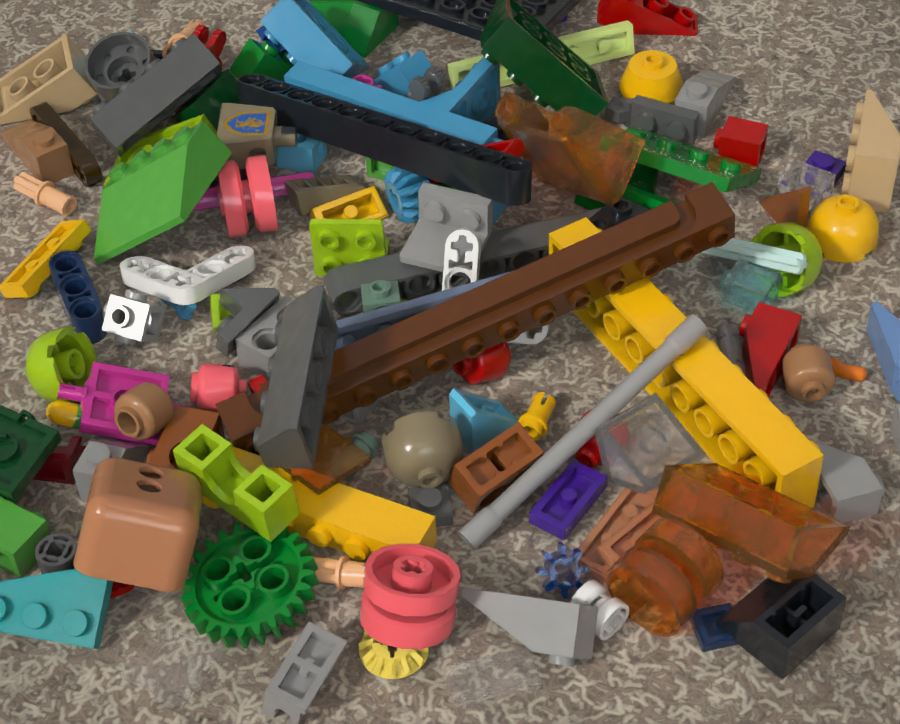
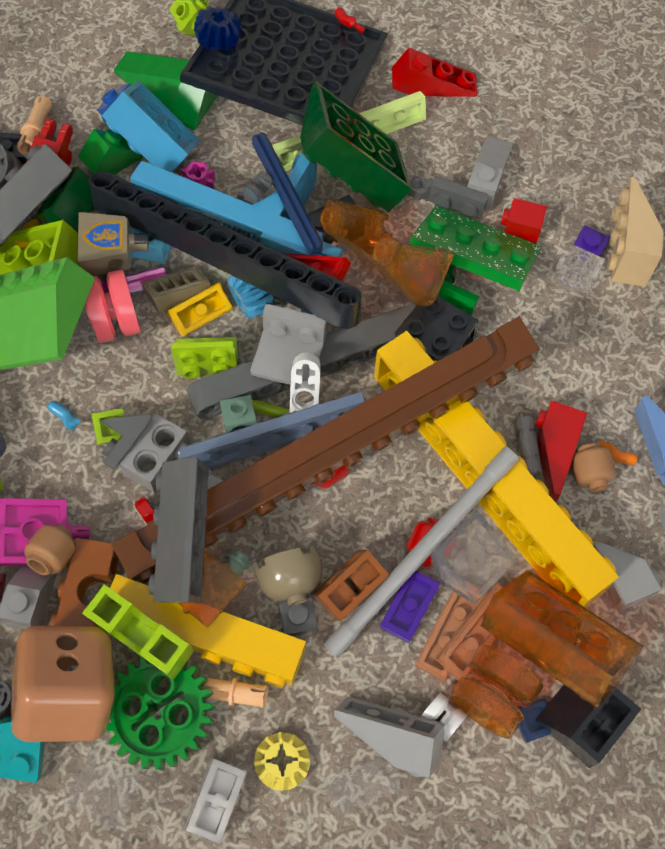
camera: 10 degrees left, 20 degrees up
(133, 318) = (27, 440): light grey brick -> none
(189, 285) = (76, 399): white beam -> none
(215, 384) = (108, 510): coral head -> none
(400, 71) = (234, 160): dark azure slope -> none
(409, 596) = (293, 724): coral wheel -> none
(461, 90) = (287, 194): none -> dark blue axle
(479, 417) = (333, 528): medium azure slope -> none
(538, 415) = (375, 528): yellow pin -> none
(558, 580) = (411, 681): clear blue gear -> none
(652, 76) = (444, 155): yellow cone -> none
(747, 286) = (540, 380): clear light blue brick -> none
(762, 255) = (548, 350): light aqua axle -> none
(789, 206) = (567, 294): dark orange tile -> none
(799, 239) = (571, 346): lime cylinder -> none
(845, 228) = (611, 310): yellow cylinder -> none

